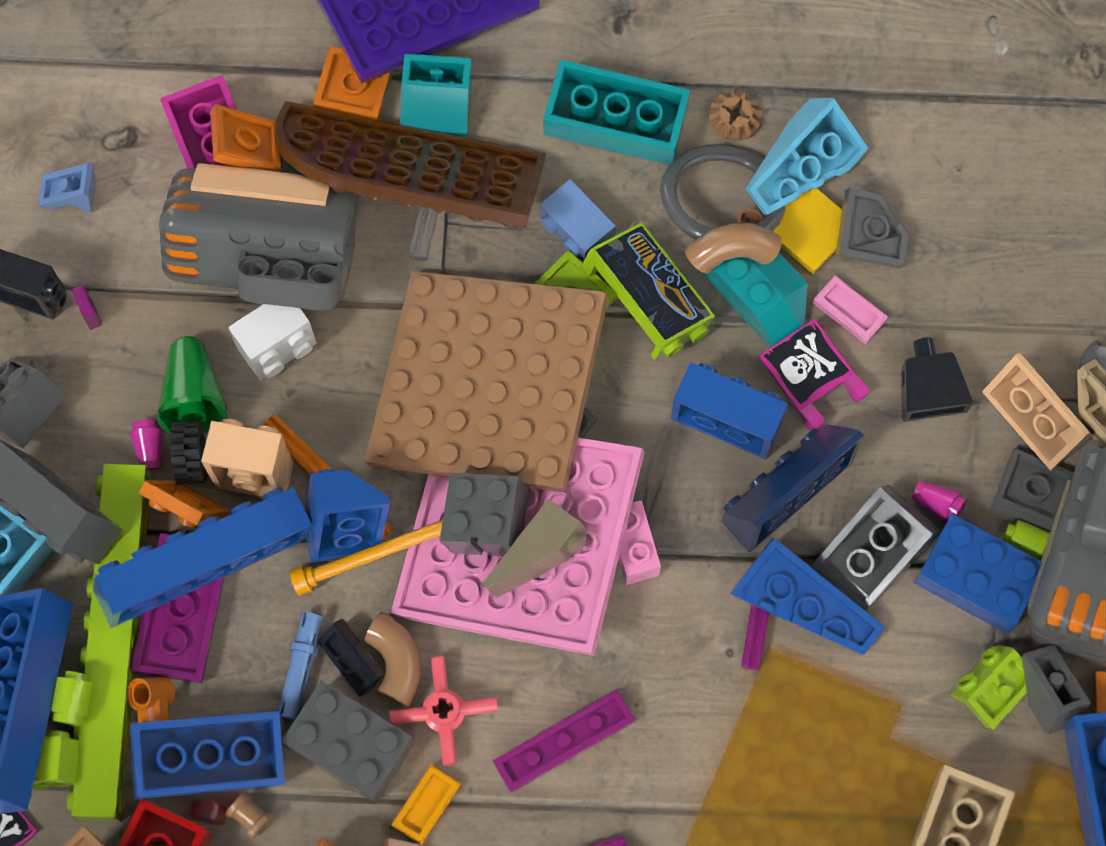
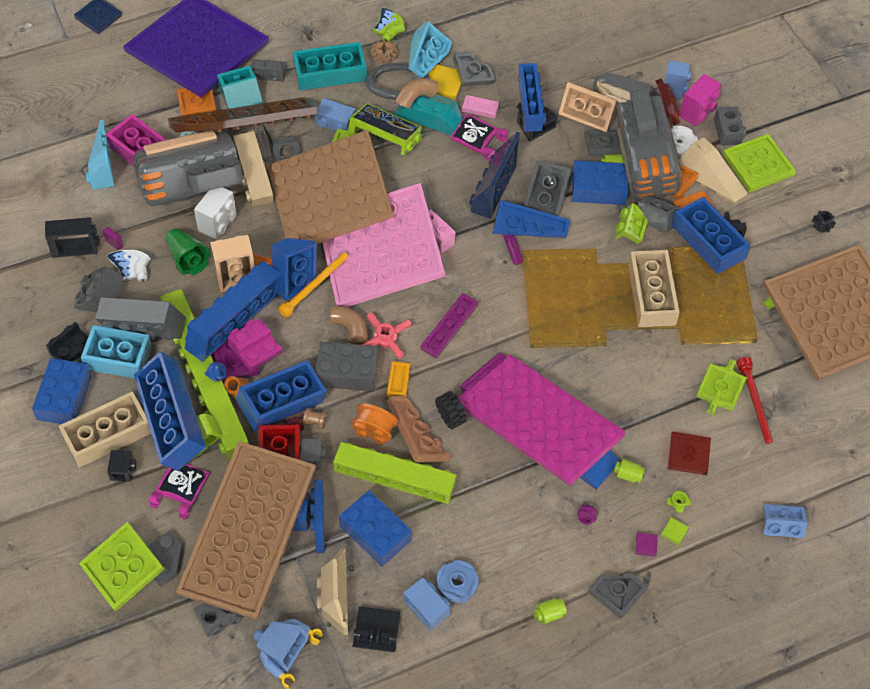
camera: 30 degrees left, 15 degrees down
(68, 187) = (77, 190): medium blue slope -> none
(71, 698) = (200, 397): lime brick -> none
(94, 368) = (130, 264): none -> white arm
(121, 662) = (216, 371): none -> blue plate
(134, 143) = (99, 163): none -> medium azure wedge
(147, 442) = (174, 281): dark pink cone -> none
(183, 501) = (205, 295): orange plate -> none
(187, 452) = (200, 275): black tyre -> none
(213, 631) = (254, 344): none -> dark pink plate
(244, 139) = (157, 131): orange plate -> none
(299, 668) = (302, 340): medium blue pin -> none
(351, 657) = (327, 331): black plate -> none
(376, 274) = (253, 169): none -> tan wedge
(474, 241) = (285, 141): none -> dark grey piece
(483, 509) = (360, 234): dark grey piece -> none
(509, 68) = (268, 69): none -> dark grey bracket
(541, 546) = (396, 240): dark tan slope -> none
(728, 409) = (450, 160): blue brick -> none
(773, 61) = (389, 24): none -> lime arm
(935, 351) = (530, 97): none -> blue brick
(939, 500) = (565, 161): dark pink cone -> none

